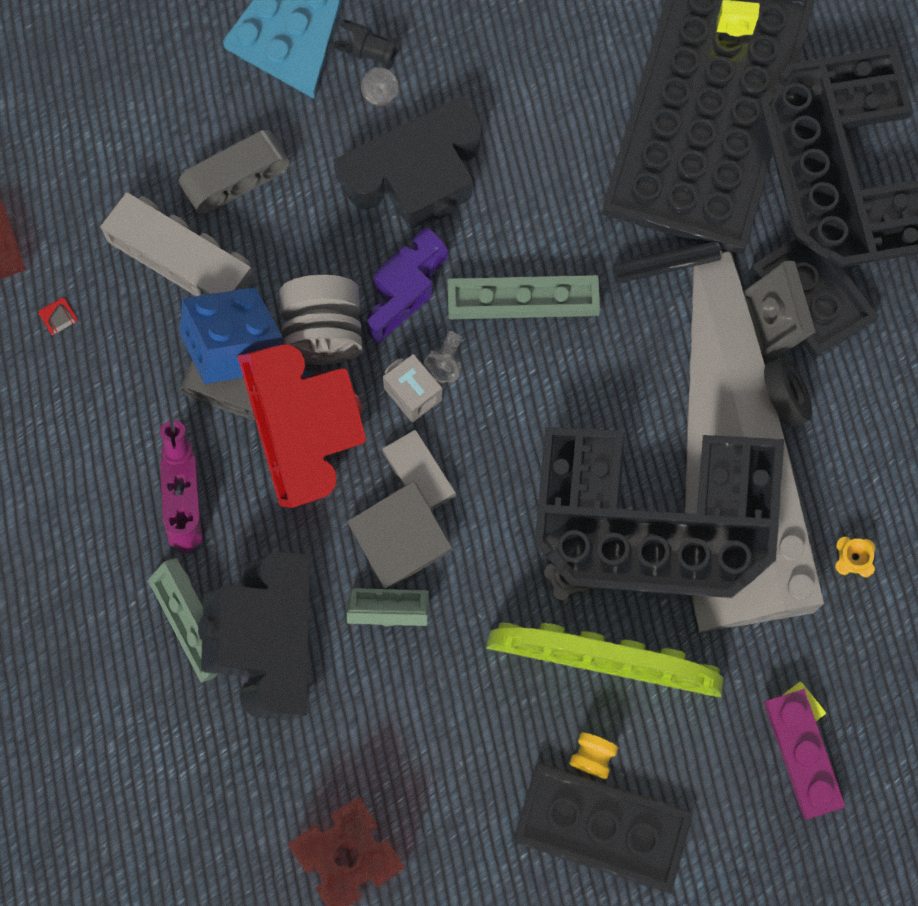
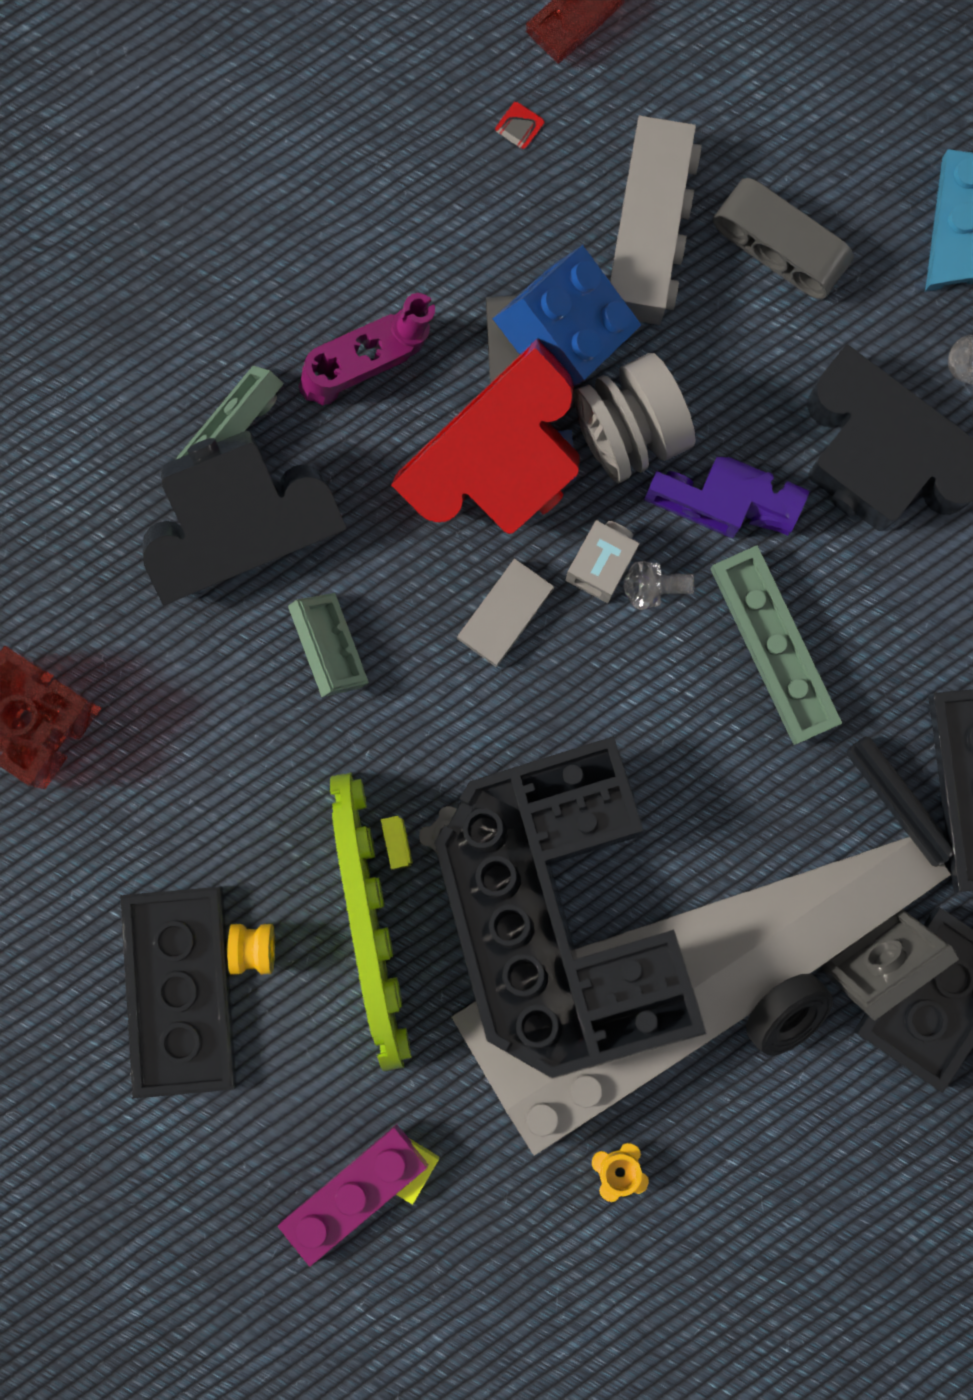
camera: 70 degrees right, 10 degrees up
(400, 535) = (419, 623): dark grey tile -> none
(558, 615) = (396, 842): none -> neon yellow tile

